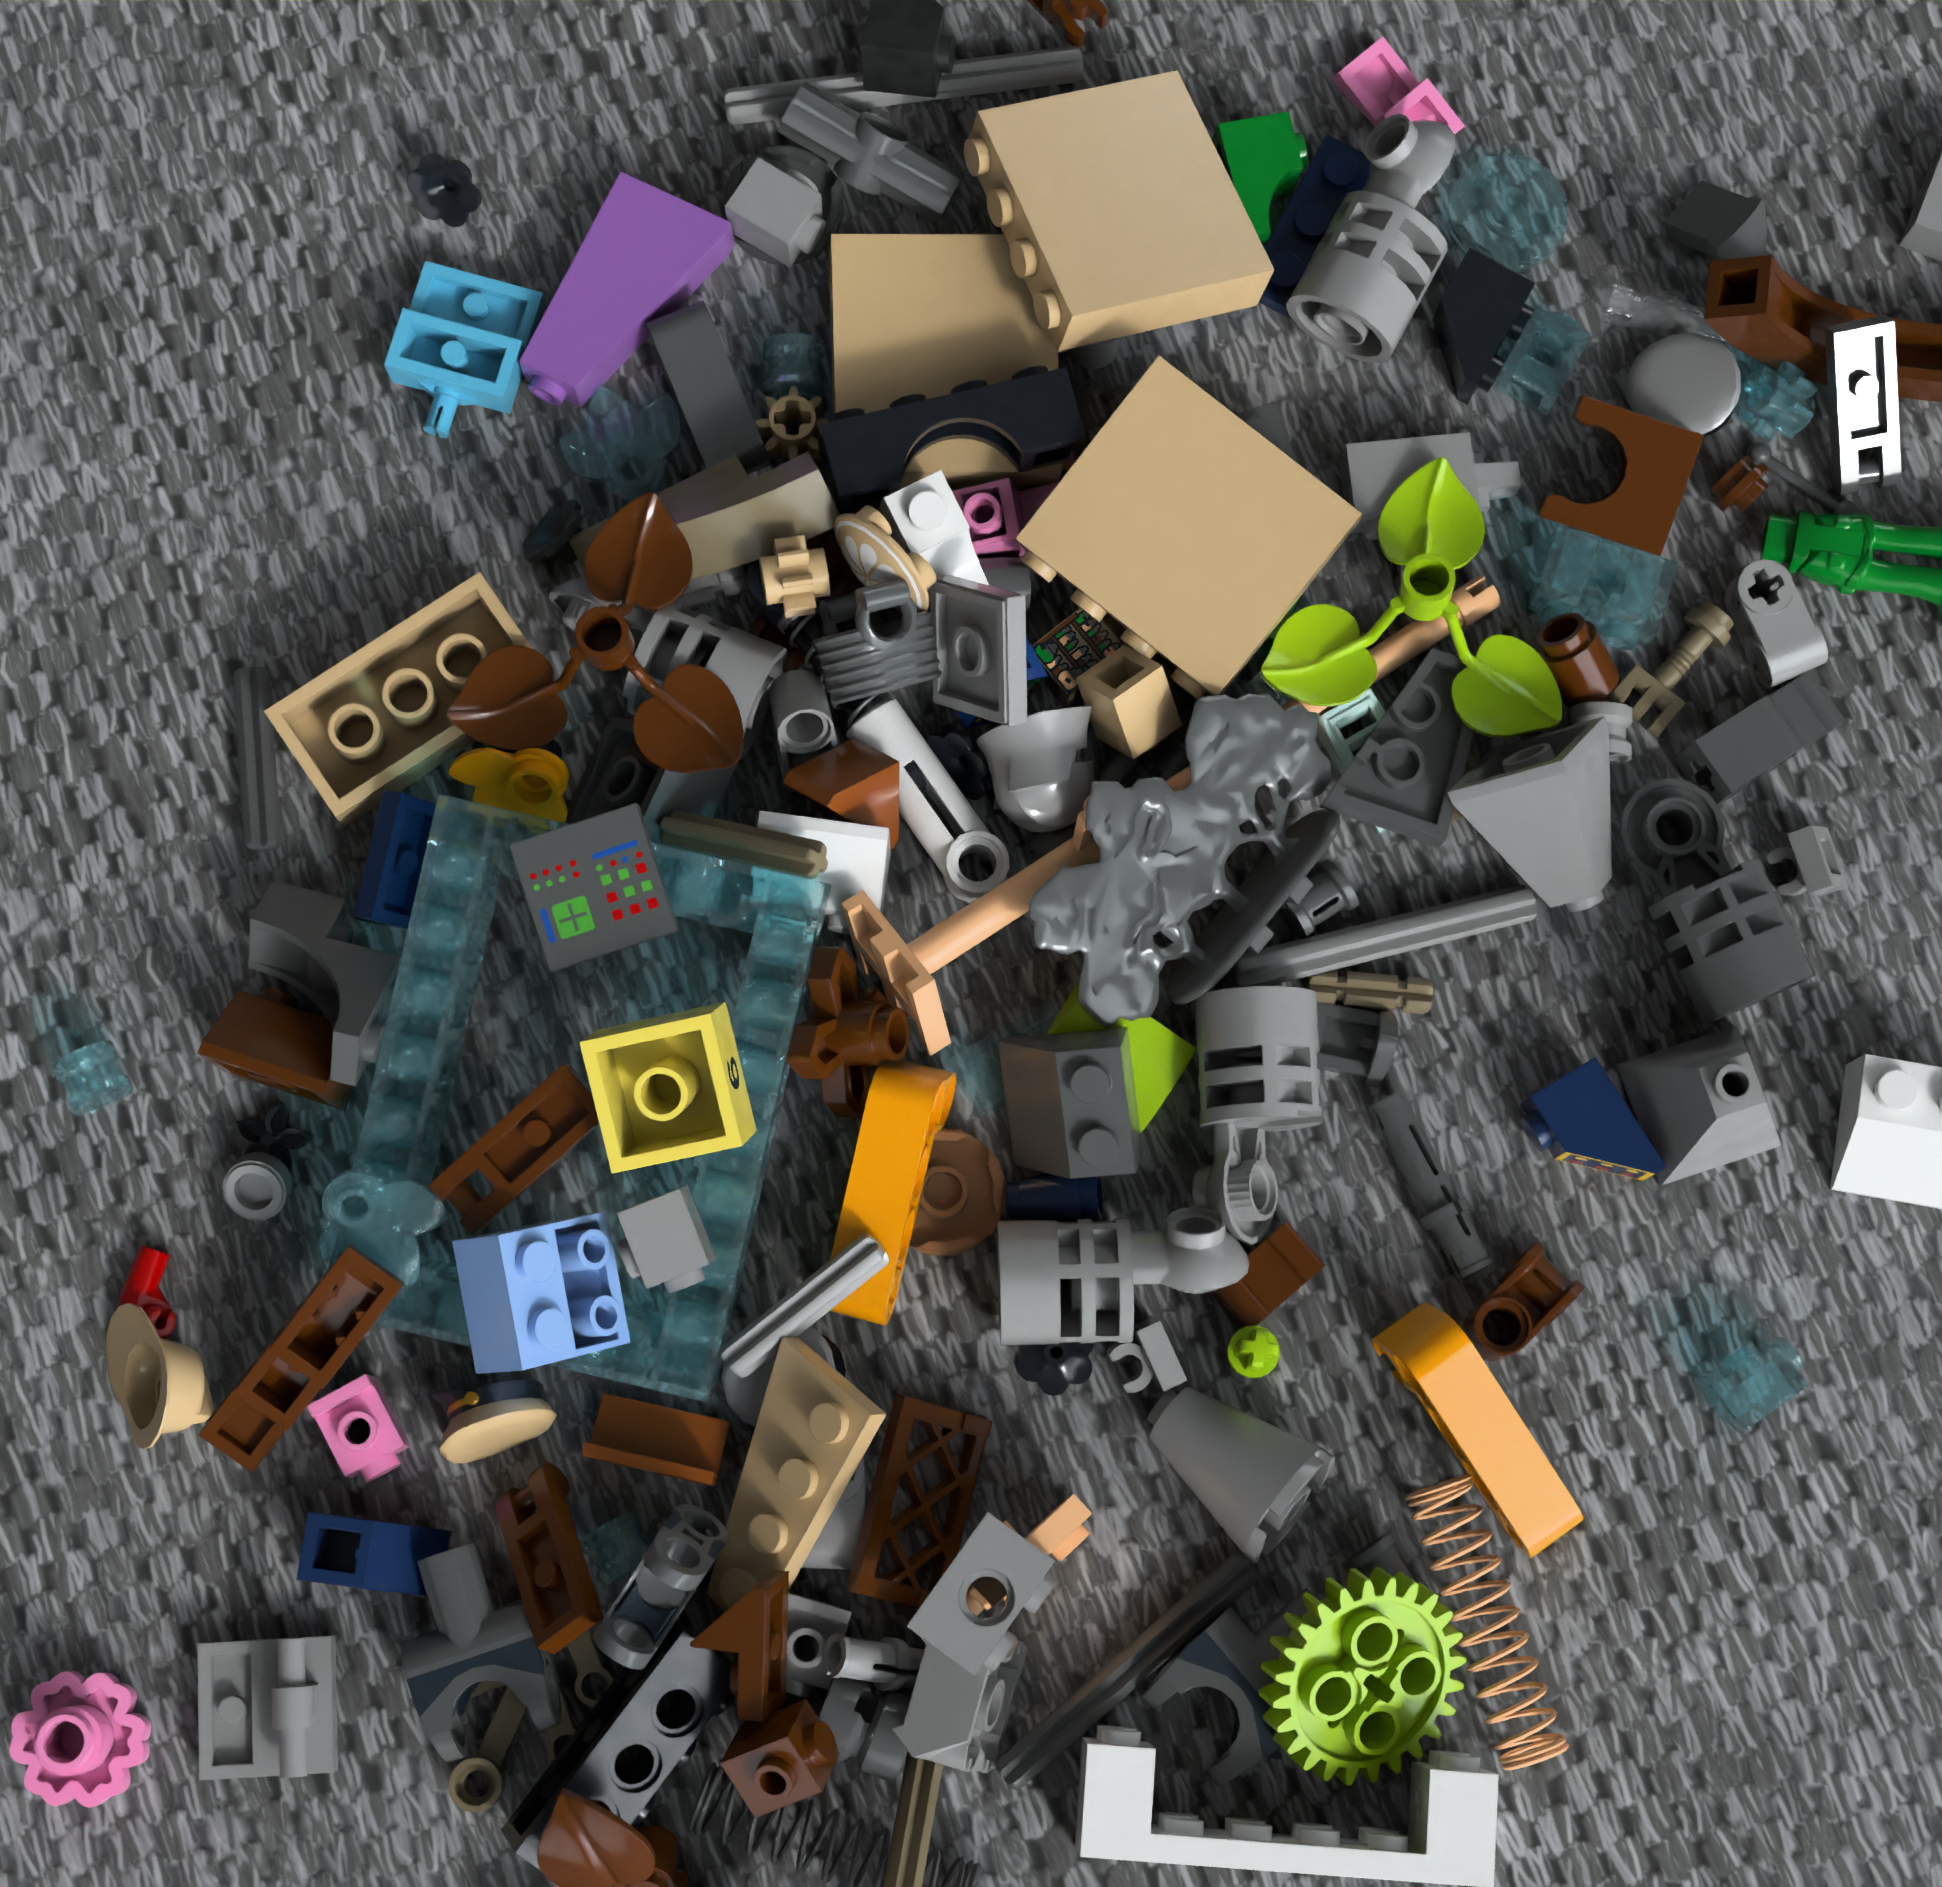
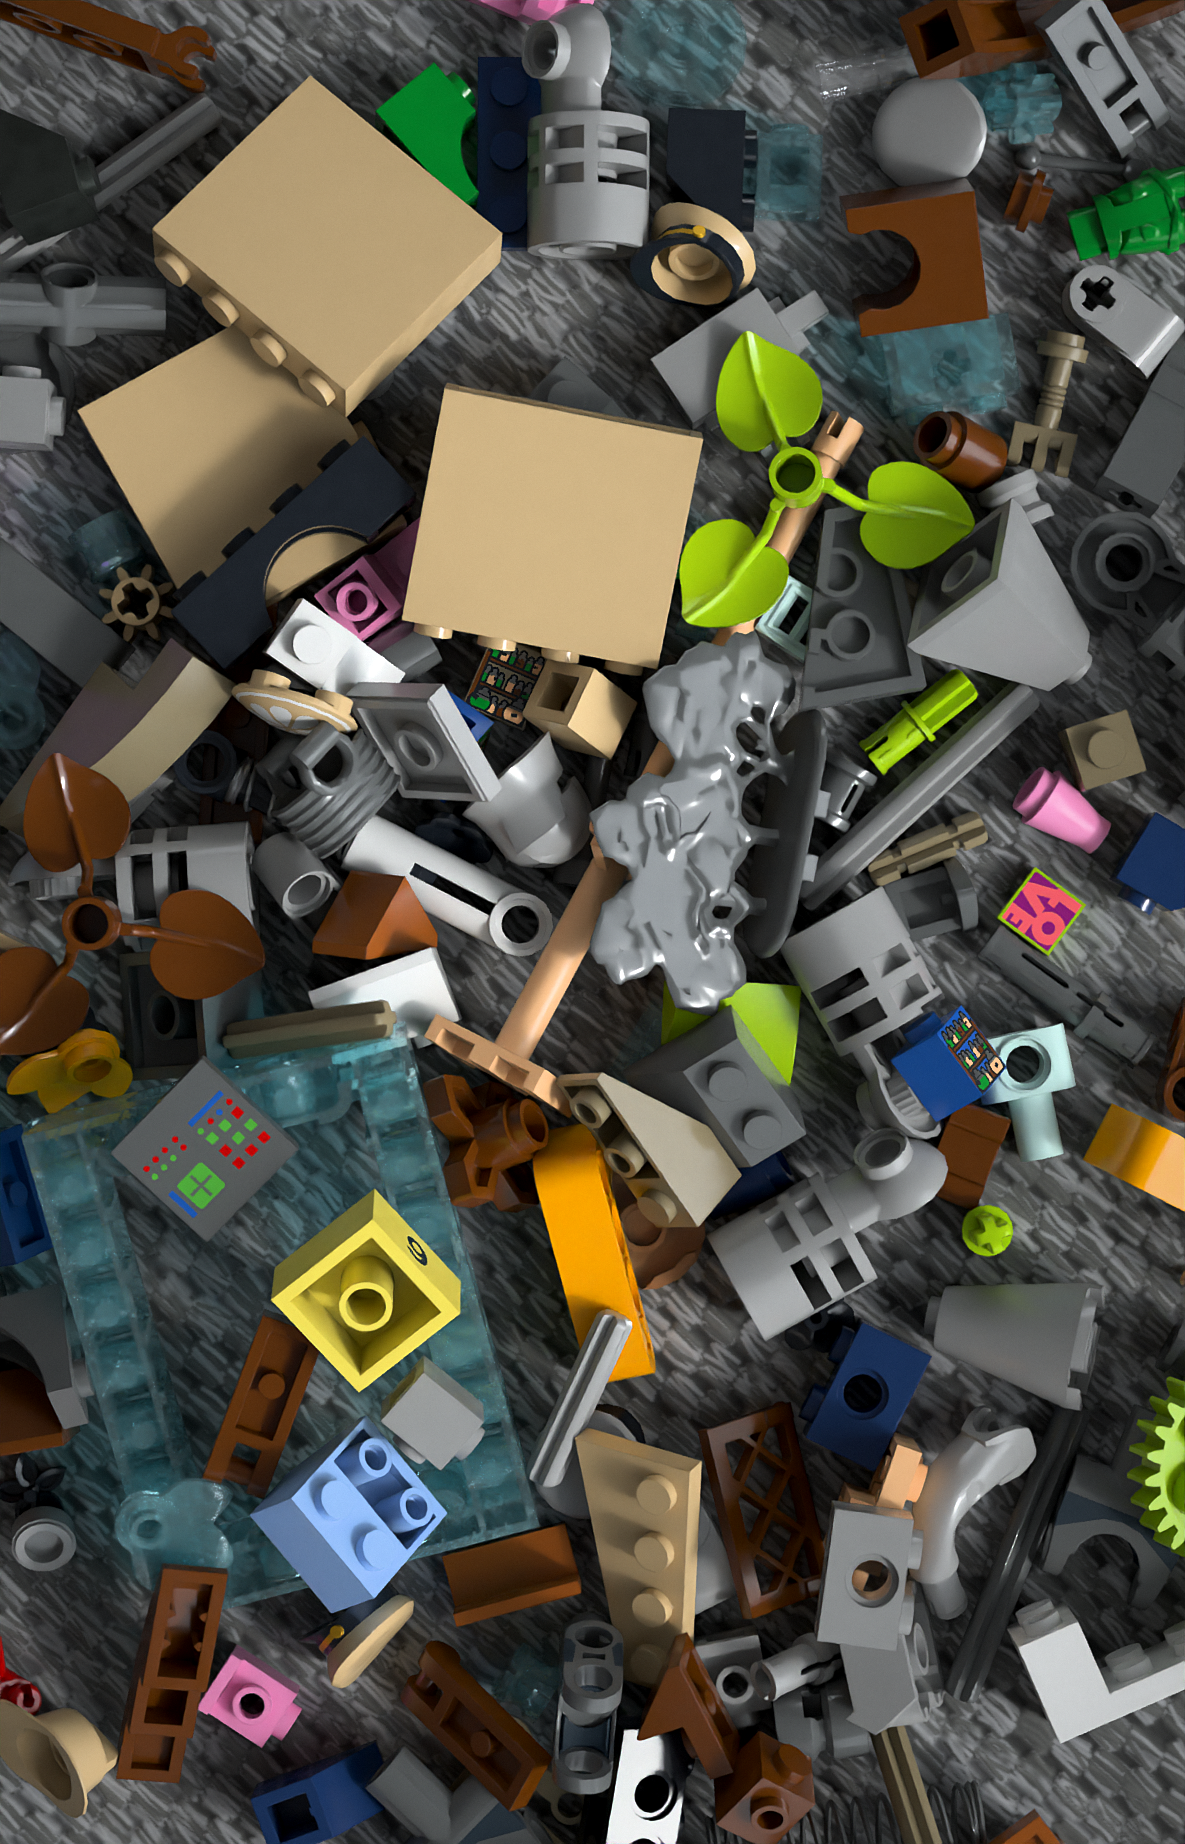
camera: 25 degrees left, 10 degrees up
(794, 576) = (222, 760): tan gear -> none
(995, 1119) = (659, 1152): none -> dark tan slope
(1104, 1436) = (864, 1431): none -> dark blue brick
(1108, 1565) = (953, 1484): none -> light grey piece
(1154, 1355) = (901, 1275): light grey tile -> none
(1295, 1177) = (947, 1062): none -> blue brick
(1349, 1259) = (1032, 1100): none -> light aqua piece
(1420, 875) = (919, 720): none -> lime axle
(1426, 381) = (693, 258): none -> tan piece
(1444, 1099) = (1040, 911): none -> tile
(1507, 1017) = (1058, 808): none -> bright pink cone
(1572, 983) = (1102, 751): none -> dark tan brick

